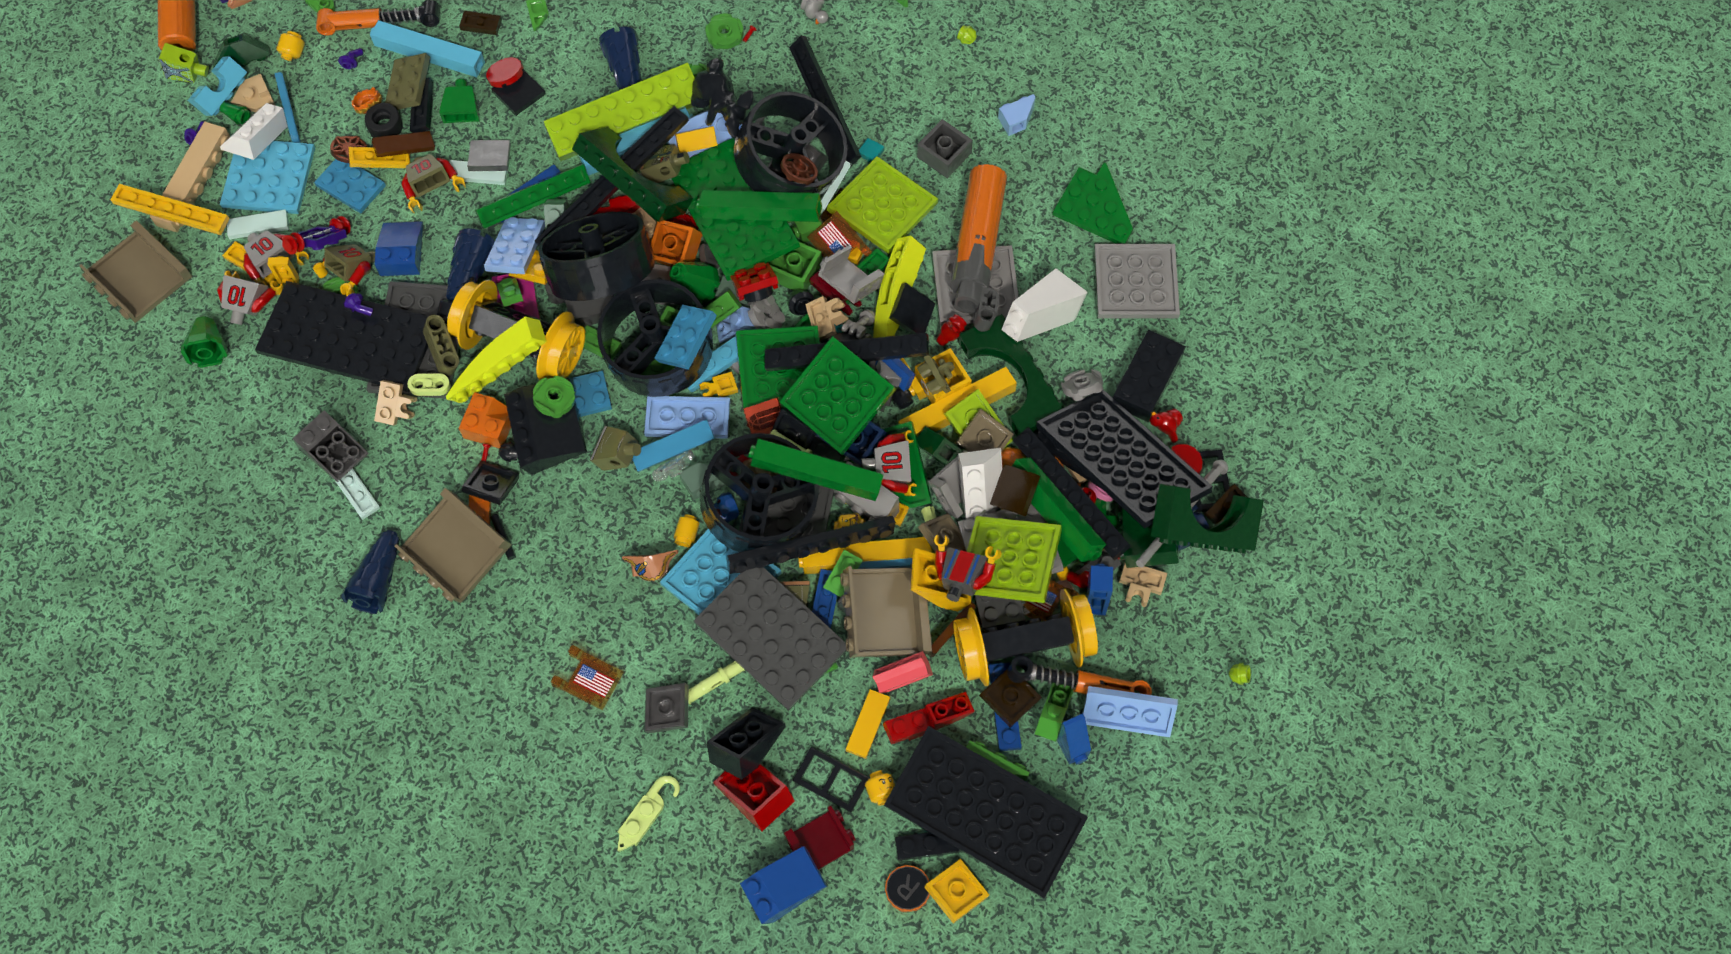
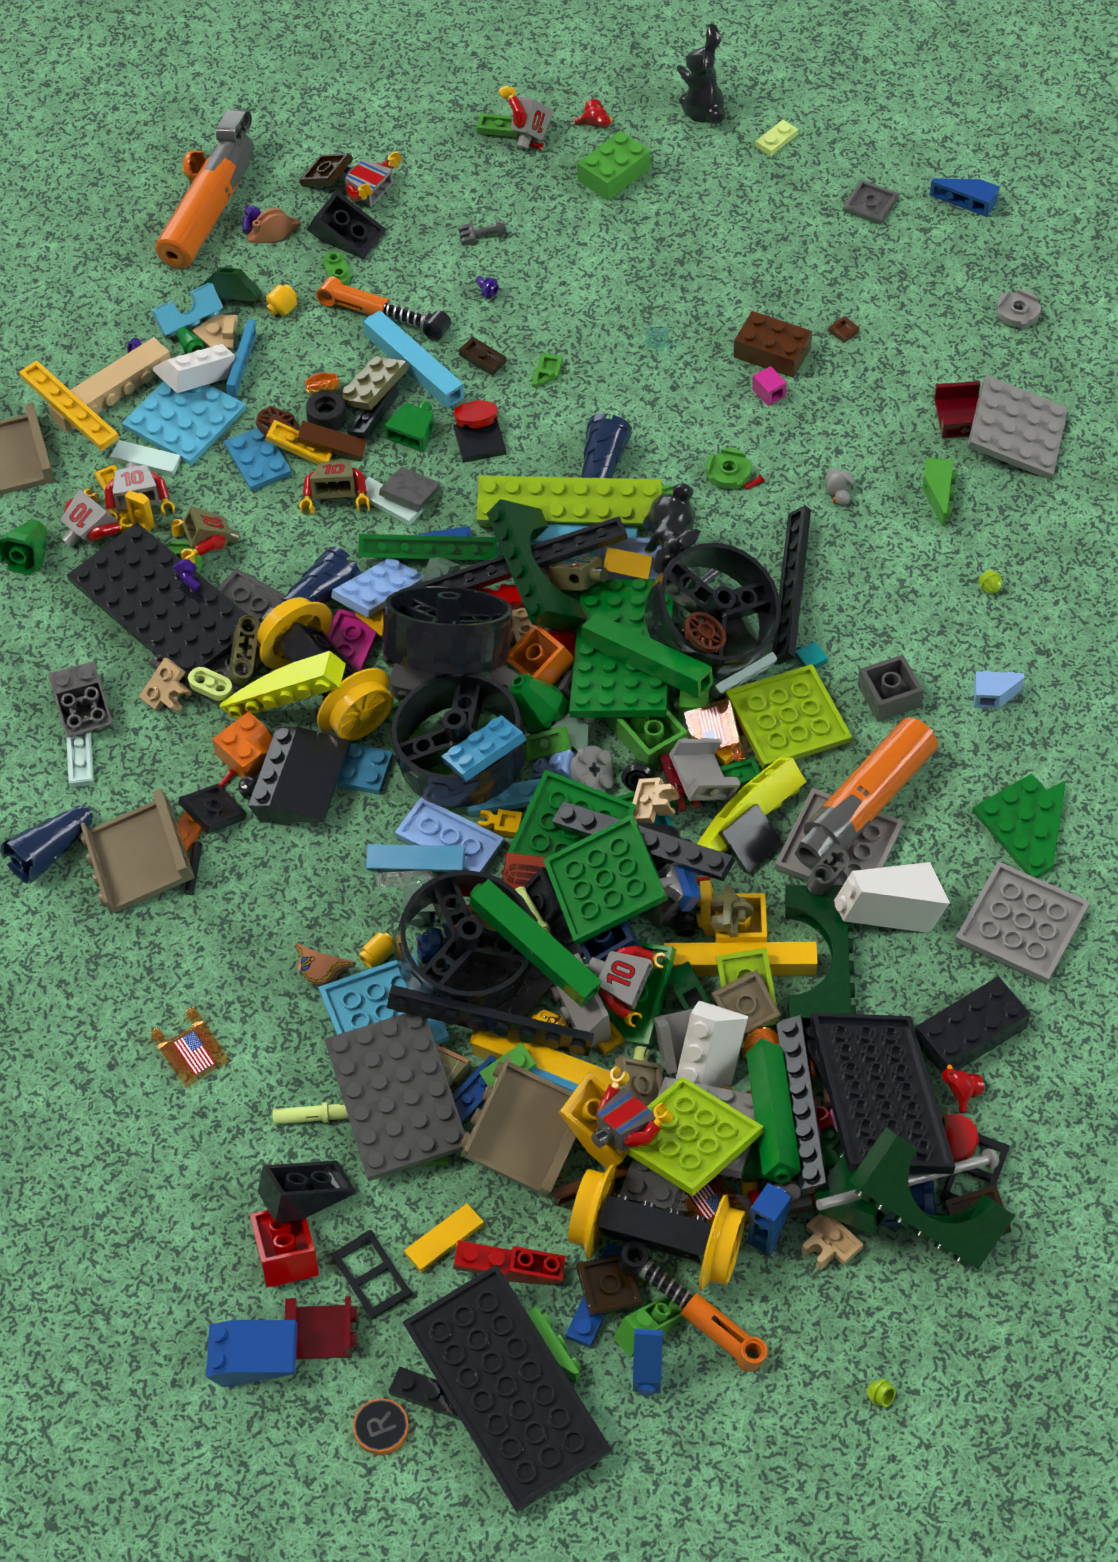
camera: 30 degrees right, 10 degrees down
(181, 64) = (165, 273): lime torso -> none
(317, 236) = (190, 492): plate -> none
(347, 61) = (328, 338): dark purple plate -> none
(399, 249) = (265, 541): blue slope -> none
(509, 291) = (343, 628): bright green plate -> none
(555, 407) = (322, 762): bright green plate -> none
(615, 449) = (353, 833): olive torso -> none
(644, 814) = (162, 1210): yellowish green plate -> none
(666, 708) = (248, 1115): flat silver tile -> none
(755, 282) = (595, 731): red piece -> none
(866, 317) = (680, 829): light grey hinge -> none
(879, 787) = (412, 1302): yellow head -> none
(902, 672) = (508, 1202): coral piece -> none
(951, 330) = (780, 876): red animal -> none
(956, 891) = (428, 1454): yellow plate -> none
(1015, 490) = (740, 1070): dark brown tile -> none
(1081, 384) = (890, 1000): light grey plate -> none
(1129, 711) = (727, 1365): light blue plate -> none

